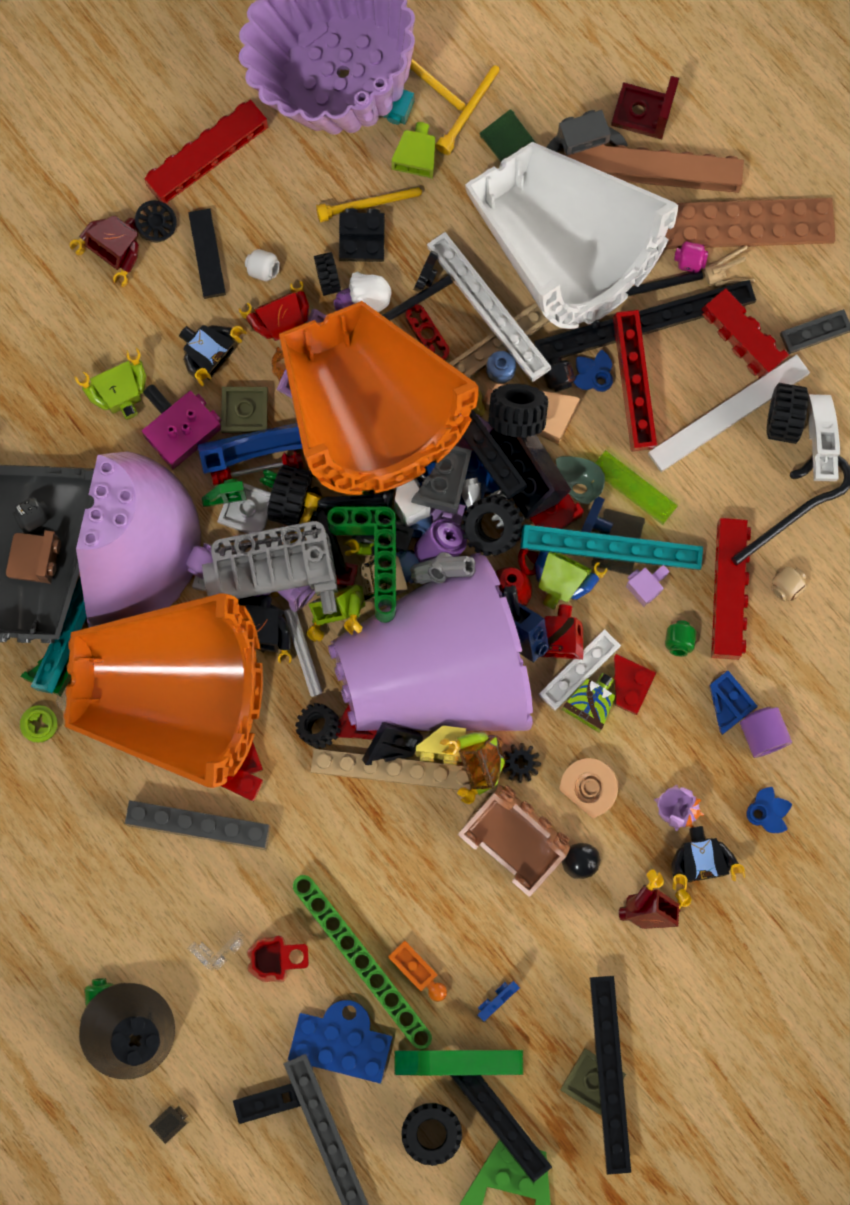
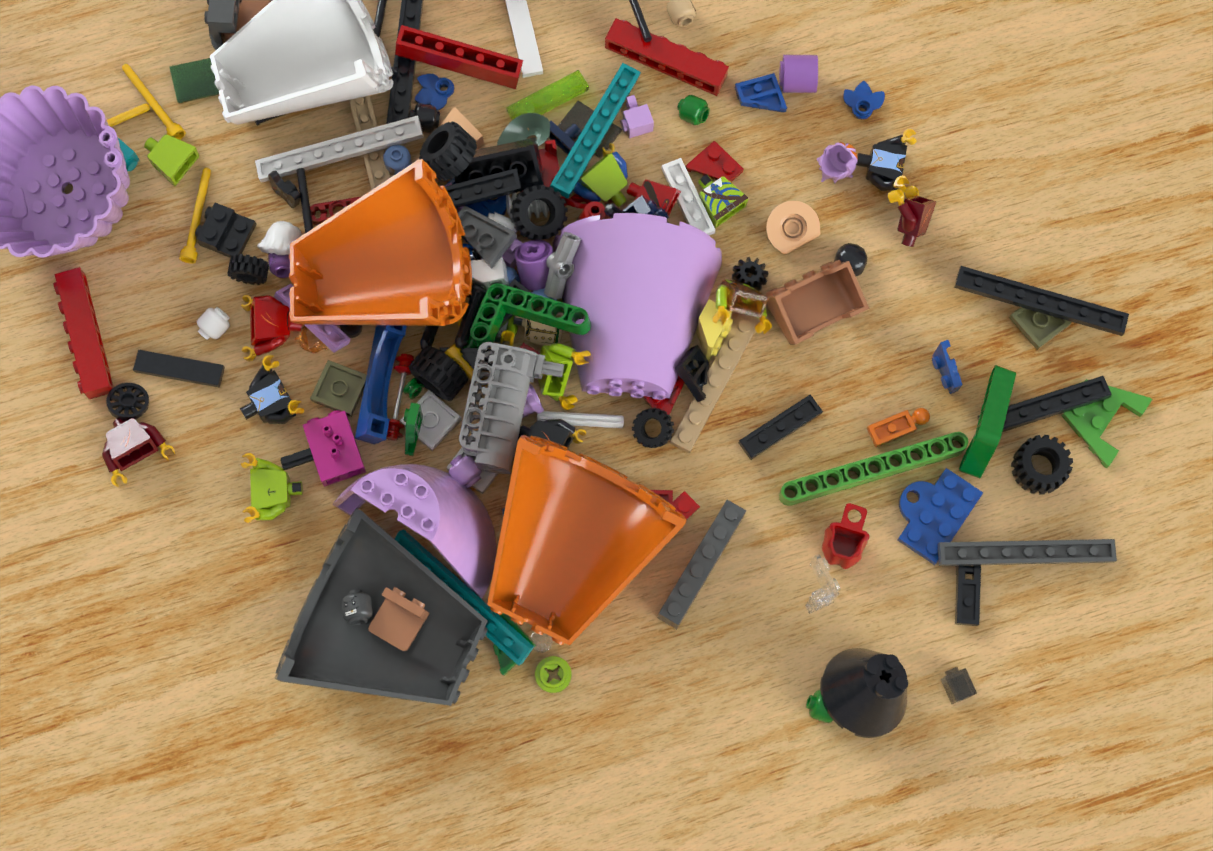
camera: 70 degrees left, 5 degrees down
(372, 853) = (780, 427): none -> black tile

